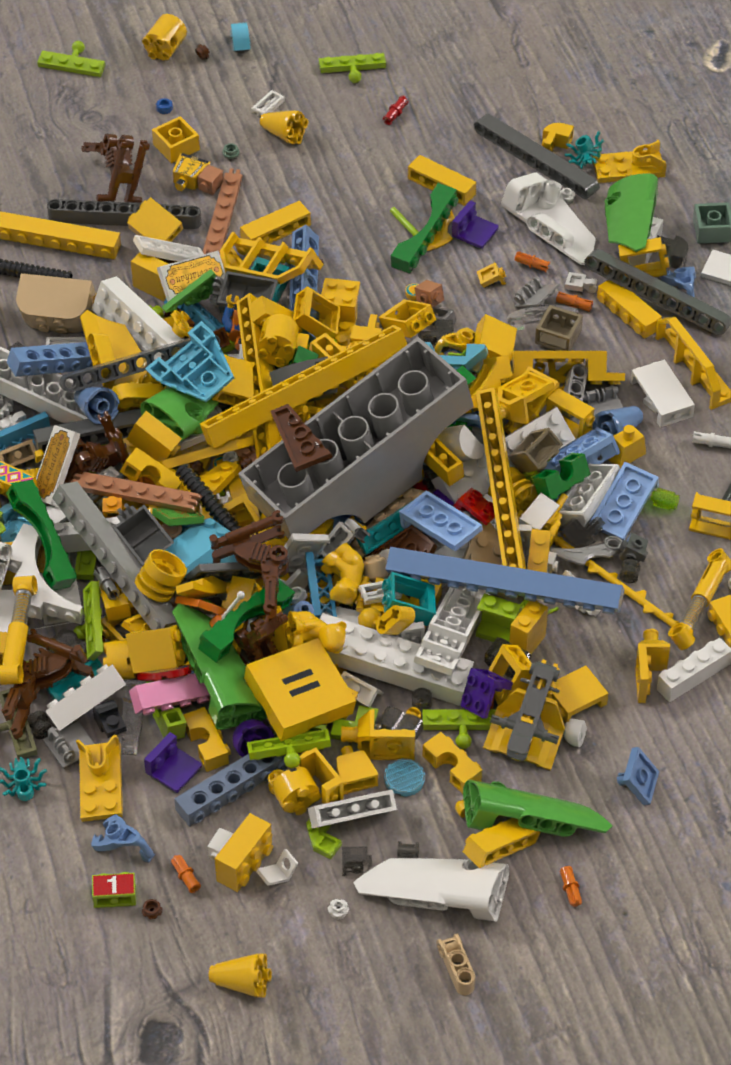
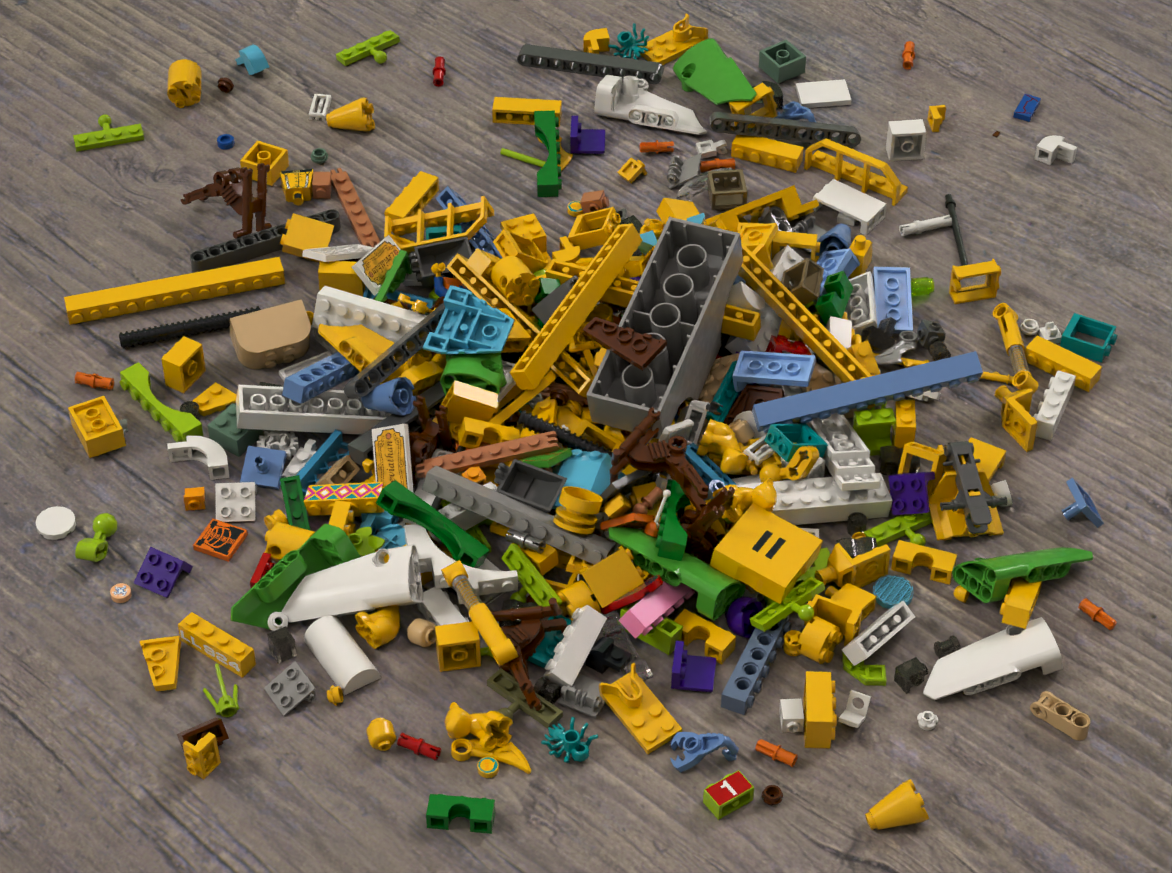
camera: 30 degrees left, 5 degrees down
(223, 599) = (648, 502): none -> nougat pin

